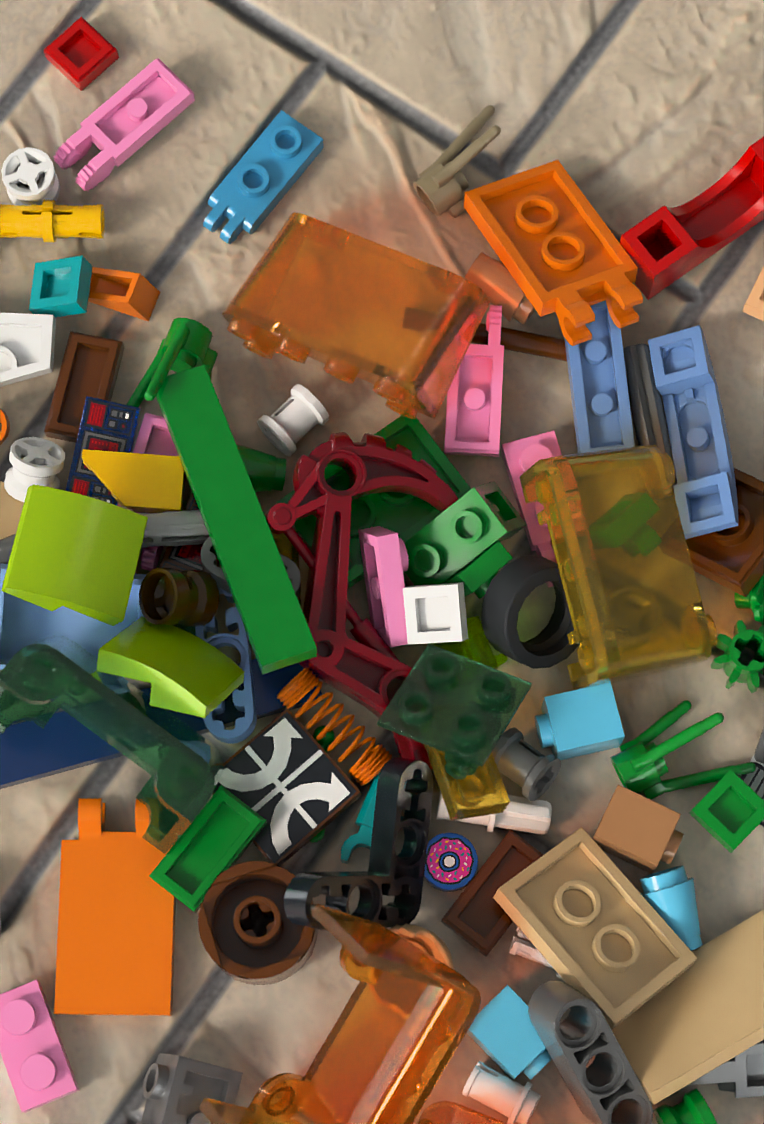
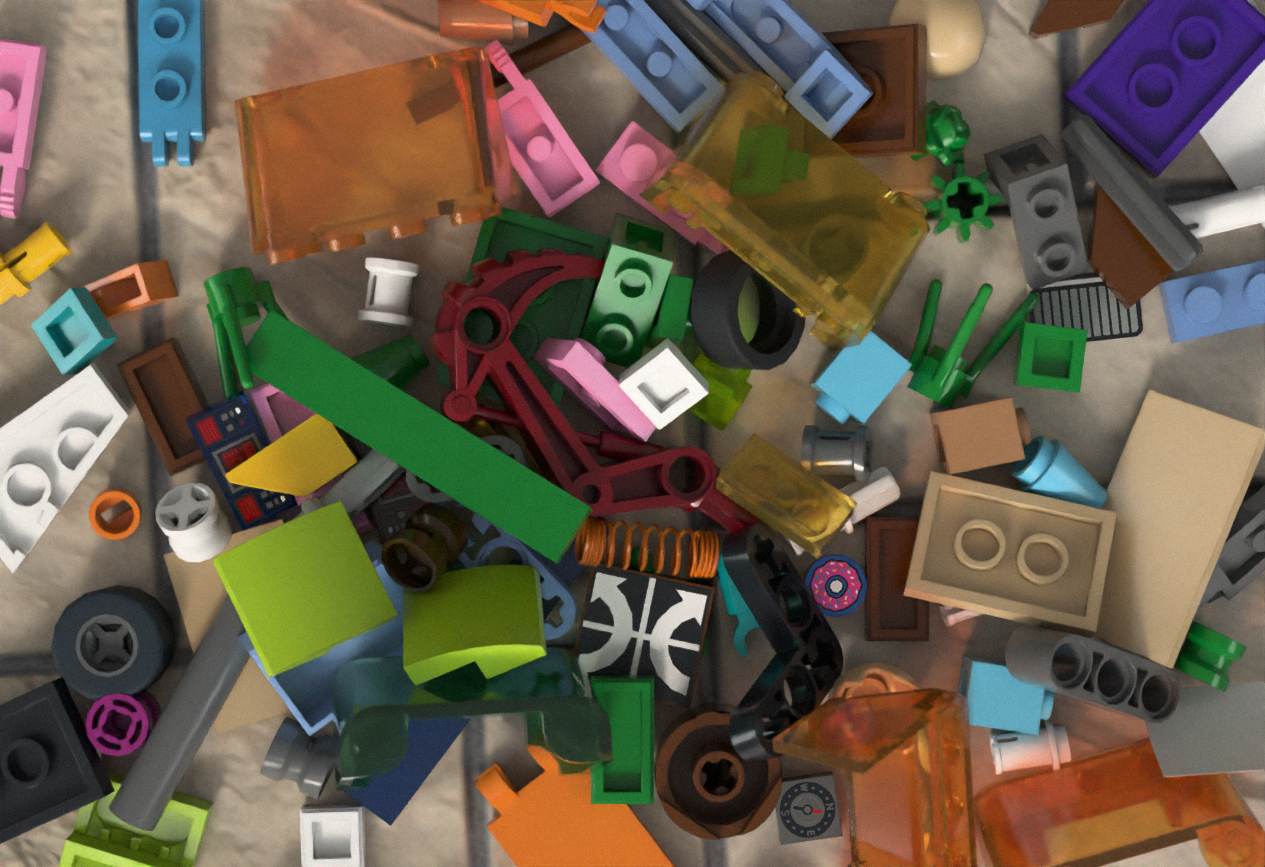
camera: 40 degrees left, 15 degrees up
(302, 1010) = (808, 809): none -> dark grey tile
(455, 707) = (748, 458): clear green hinge -> none

